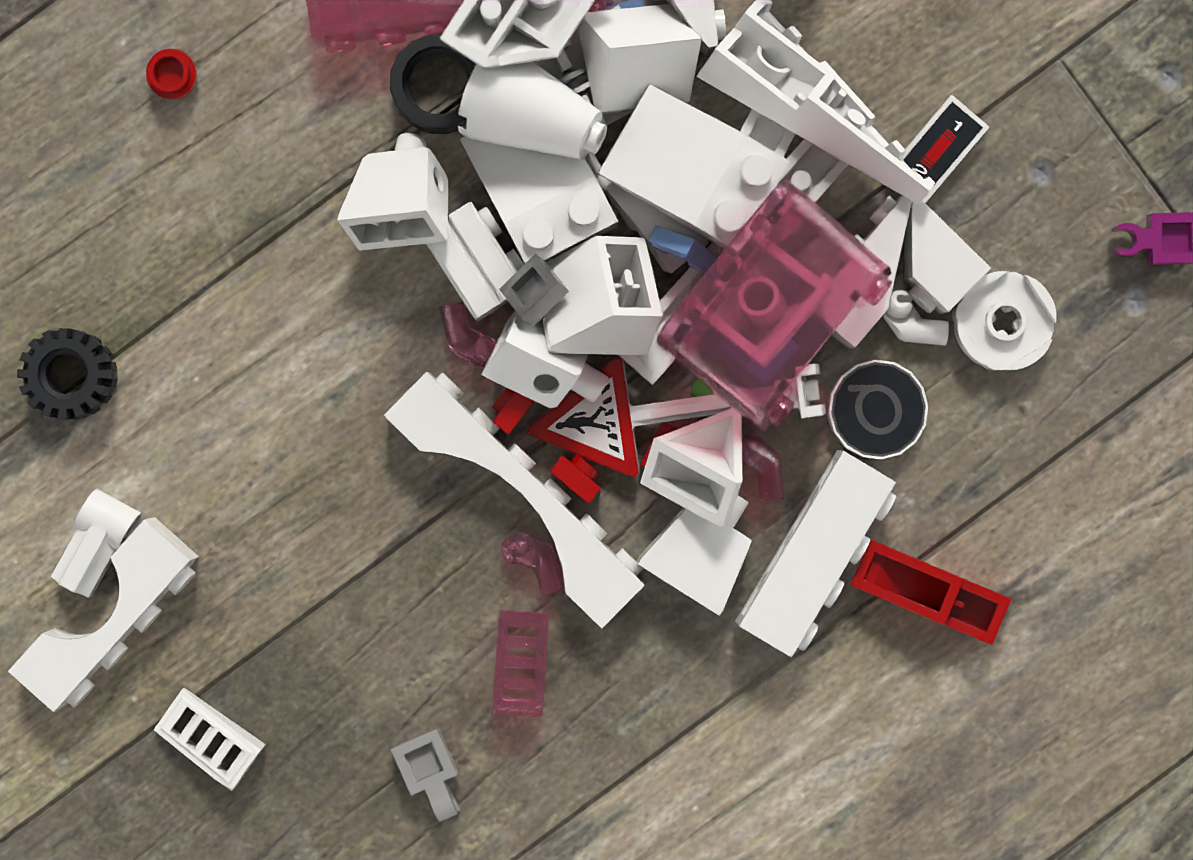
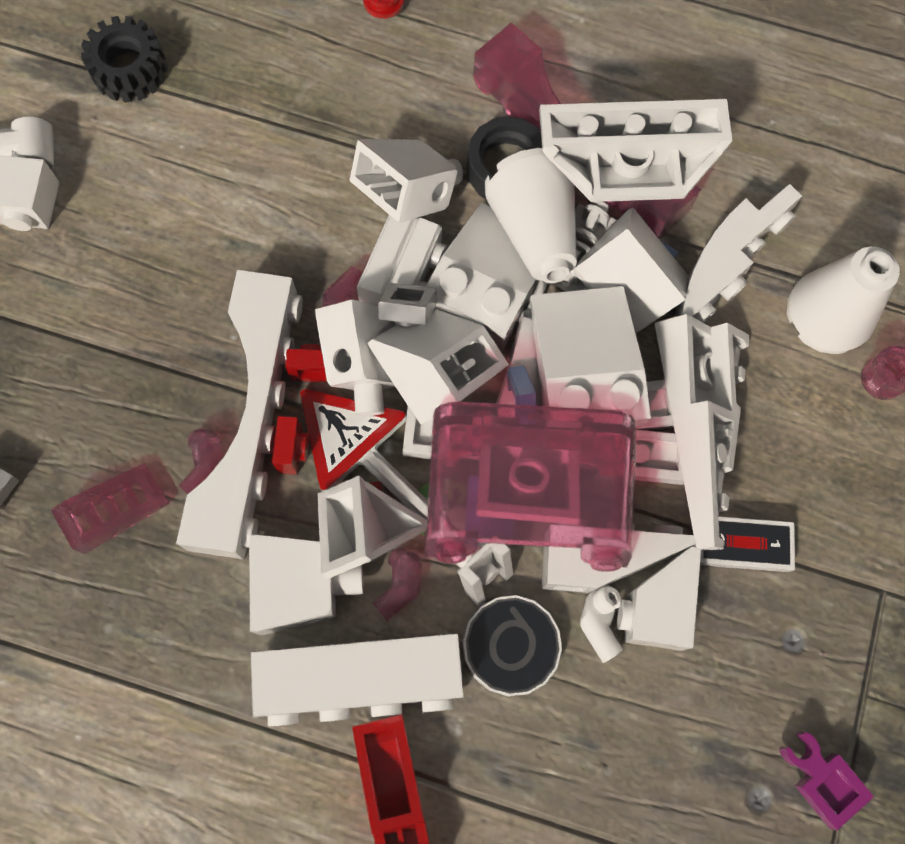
camera: 50 degrees right, 15 degrees down
(1032, 328) = (684, 683): white plate -> none

